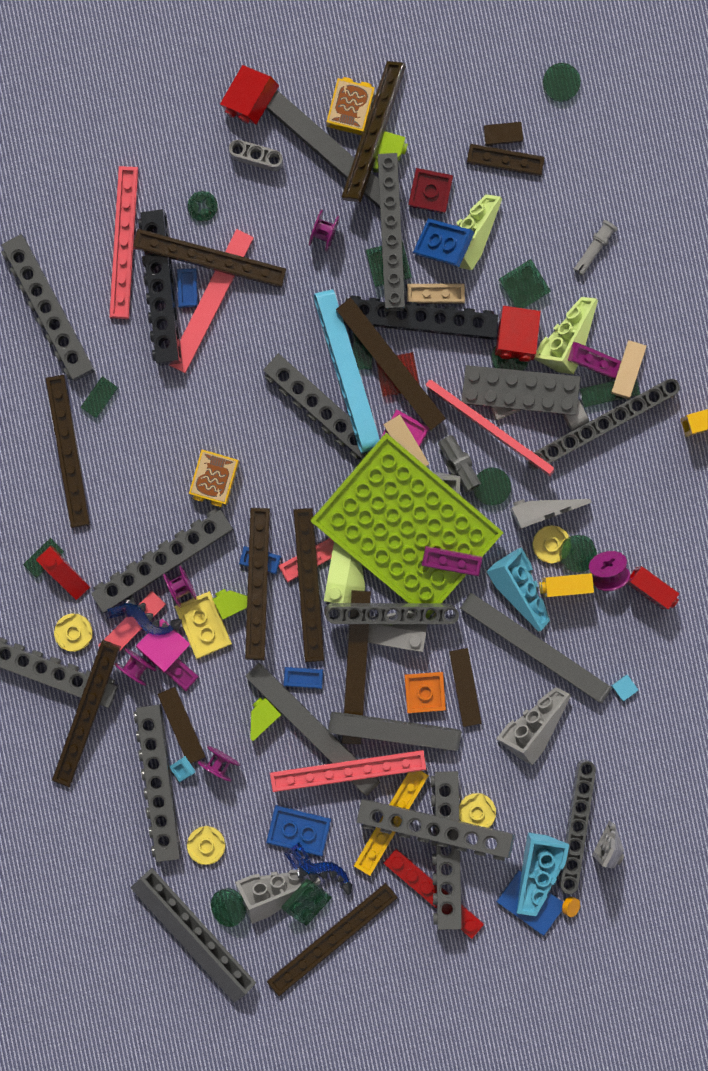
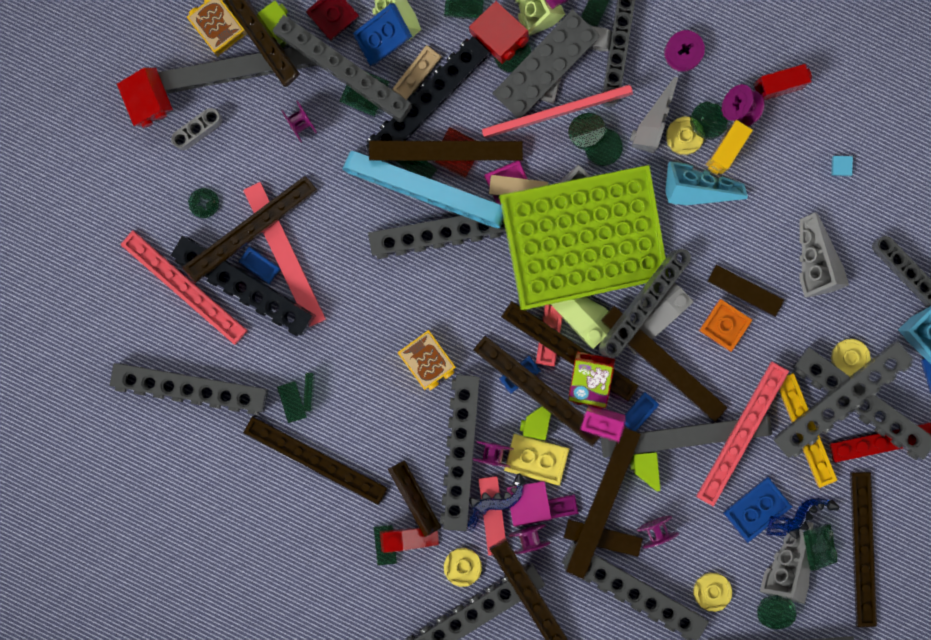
camera: 50 degrees left, 0 degrees up
(97, 552) = (414, 498): none -> dark brown tile
(117, 404) = (309, 391): none -> clear green tile
(182, 769) = (638, 564): medium azure tile -> none
(208, 702) = (602, 503): none -> dark brown tile
(271, 653) = (603, 422): none -> dark pink panel
(298, 619) = (591, 380): none -> brick
(394, 731) = (738, 372): dark grey beam -> none
(452, 561) = (640, 223): magenta tile -> none
(459, 463) = (565, 158): dark grey piece -> none
(494, 463) = (587, 131): none -> clear green tile
(536, 648) = (758, 210): dark grey beam -> none
(609, 497) = (680, 40): none -> magenta piece

